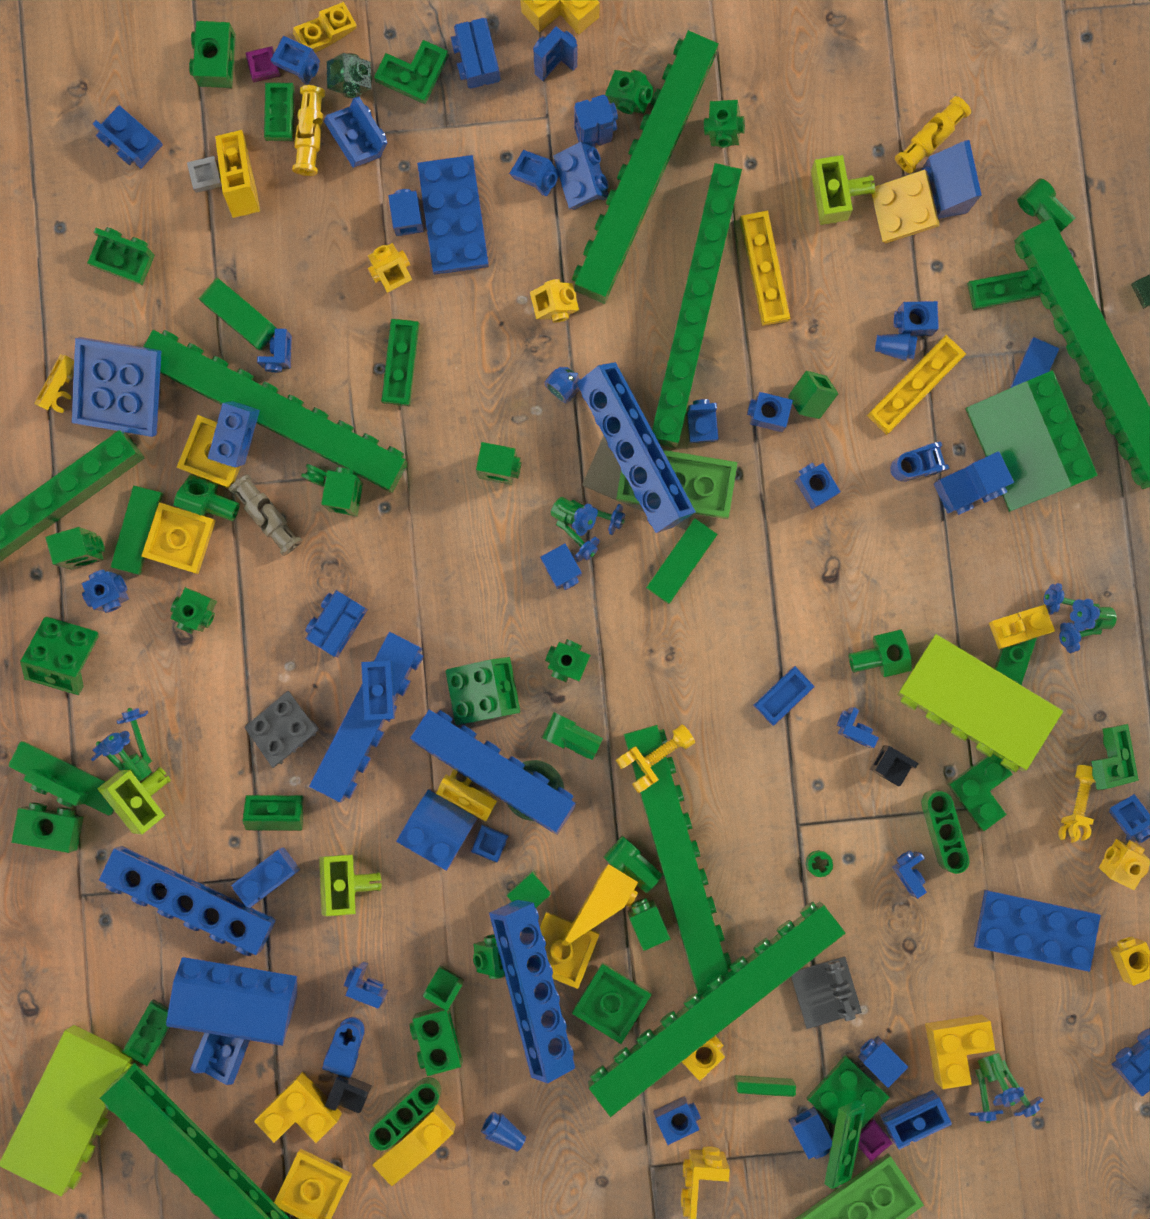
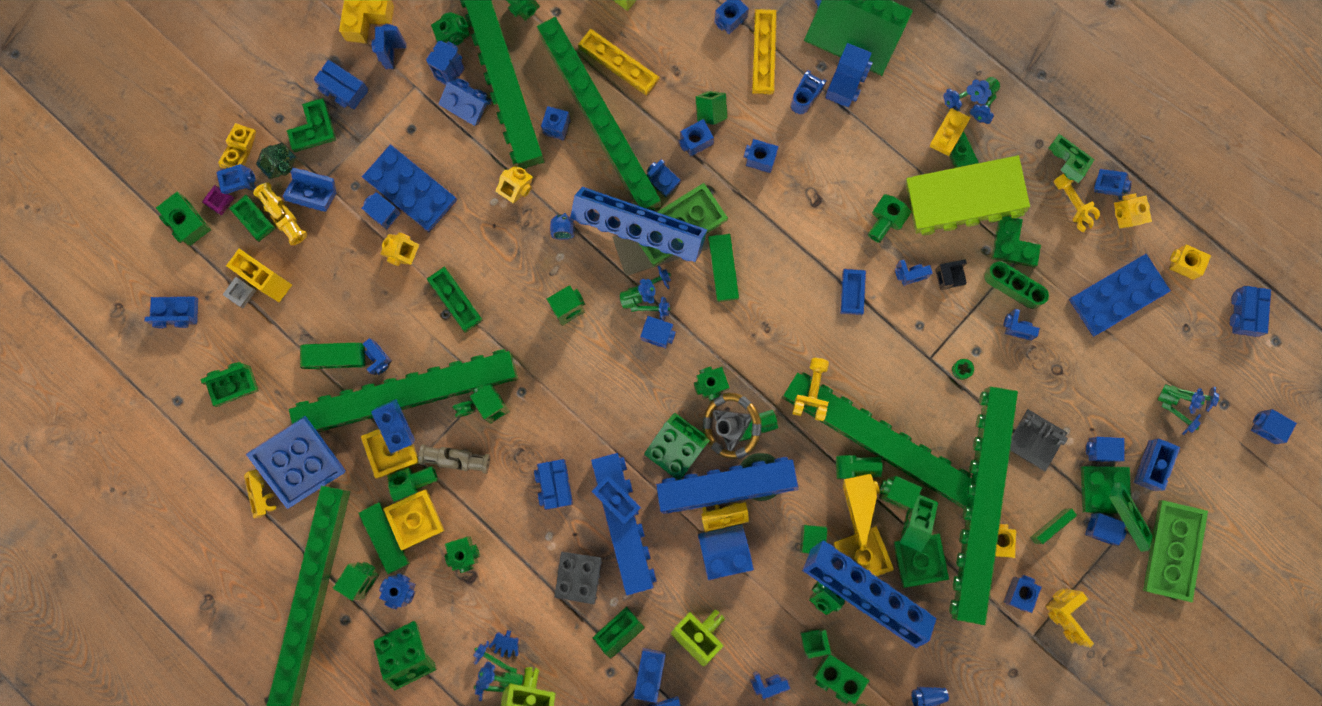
camera: 35 degrees left, 5 degrees down
(162, 727) = (505, 643): none -> blue piece
(489, 843) = (763, 532): blue tile -> none
(535, 172) = (436, 122): blue bracket -> none
(549, 719) = (732, 426): none -> dark grey piece
(639, 968) = (919, 523): none -> green brick
(648, 276) = (555, 123): none -> blue brick
(873, 1140) = (1144, 500): magenta tile -> none
(897, 345) = (733, 38): blue cone -> none
(952, 1042) = (1135, 402): yellow brick -> none
(1063, 1185) = (1273, 426): none -> blue brick

